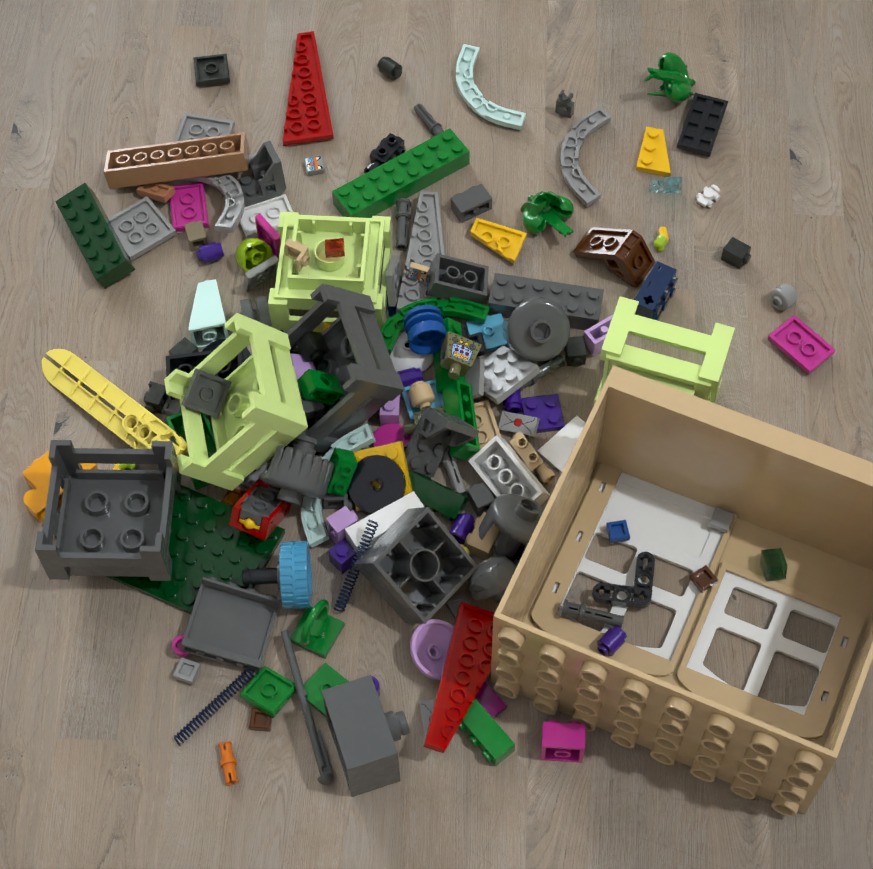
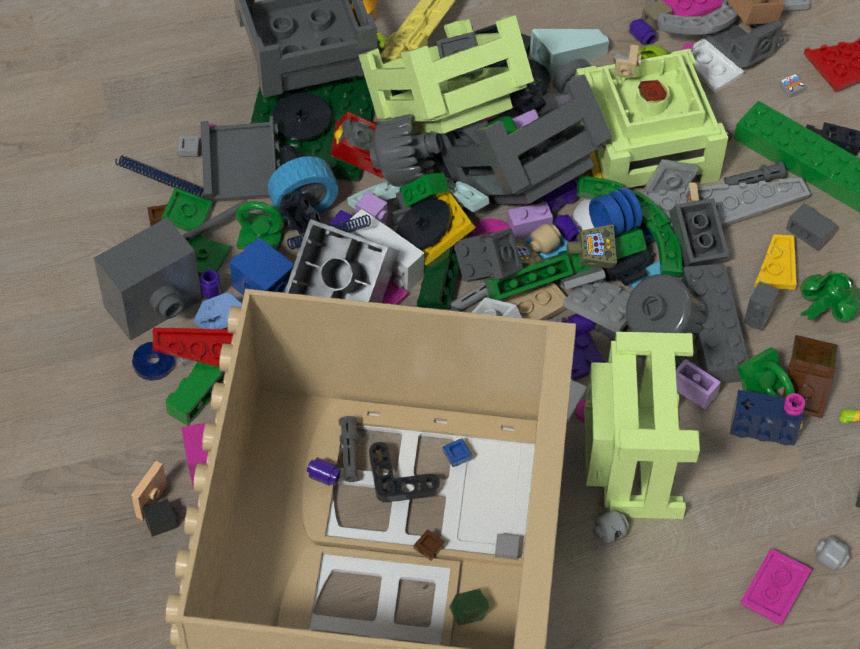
camera: 70 degrees right, 5 degrees down
(188, 546) = (314, 121): none -> black piece
(228, 763) = (108, 202): orange pin -> none
(324, 584) = (298, 211): none -> black brick
(378, 638) = (260, 269): none -> blue brick
(408, 688) = (215, 311): none -> light blue brick
(433, 776) = (148, 370): none -> clear blue tile
(544, 262) = (761, 306): none -> dark grey brick
(589, 795) = (149, 489): none -> light nougat plate
(612, 282) = (764, 374): none -> green tile
(613, 795) = (160, 517): none -> pearl dark grey brick
(659, 263) = (794, 411): none -> dark pink bush

